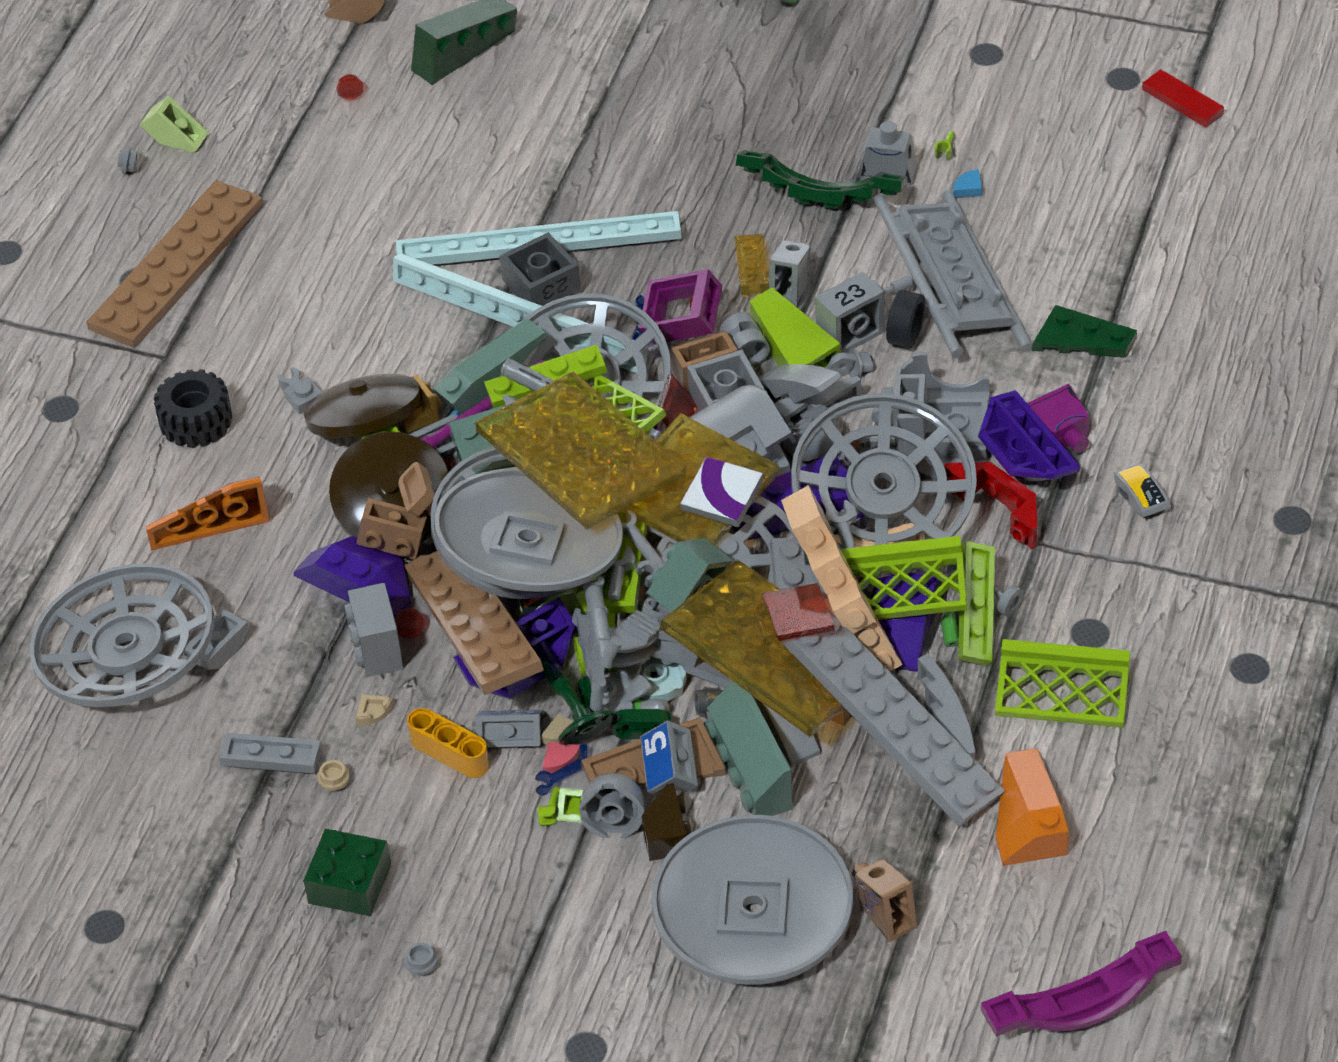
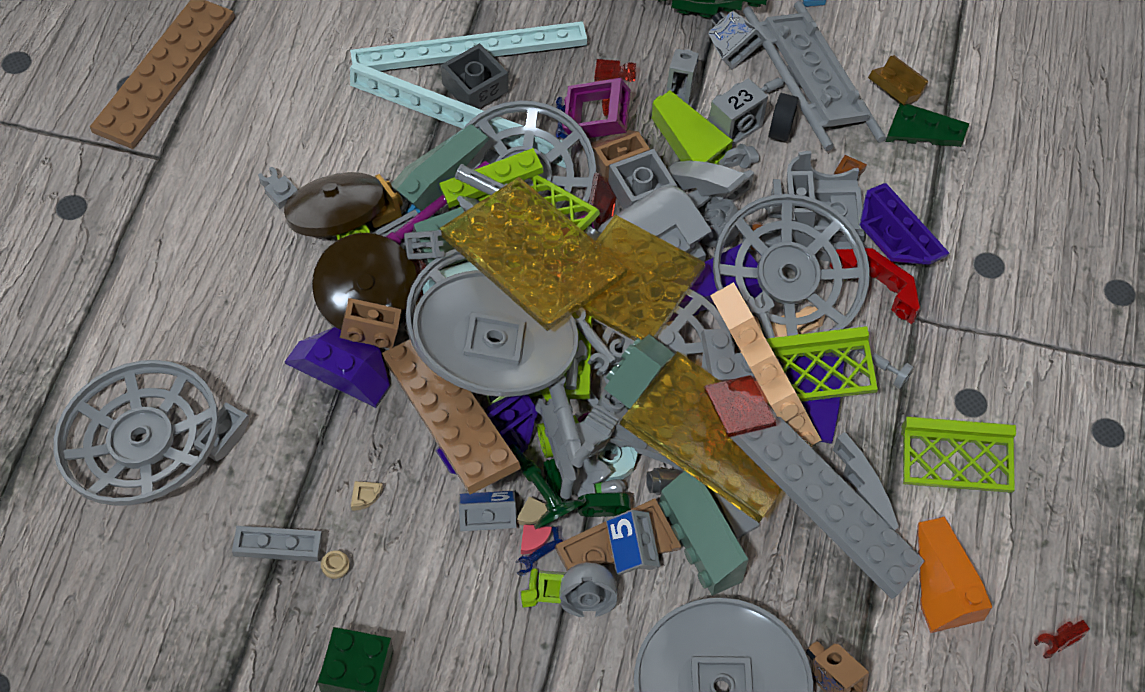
camera: 10 degrees left, 10 degrees up
(193, 408) = (183, 192): black tyre -> none
(221, 511) = (219, 304): orange wedge -> none
(373, 630) = (361, 421): light grey brick -> none
(409, 623) = (390, 409): clear red plate -> none
(416, 489) = (391, 289): medium nougat piece -> none
(448, 742) = (428, 518): light orange beam -> none
(468, 442) = (434, 243): none -> light grey tile
(664, 823) = (635, 608): dark brown slope -> none
(720, 269) = (611, 70): none -> clear red plate
(722, 491) = (659, 289): tile -> none
(746, 336) = (653, 134): light grey wheel -> none
(751, 264) = (647, 68): clear yellow plate -> none
(858, 231) = (734, 37): none -> light grey torso
(950, 628) = (856, 404): bright green arm -> none
(977, 621) = (880, 405): lime plate -> none
(980, 370) = (848, 163): none -> dark orange tile
(1056, 281) = (899, 80): none -> pearl gold bracket
(1064, 417) = (925, 203): magenta torso -> none
(1143, 490) = (998, 269): slope -> none
(1156, 871) = (1067, 635): none -> clear red plate

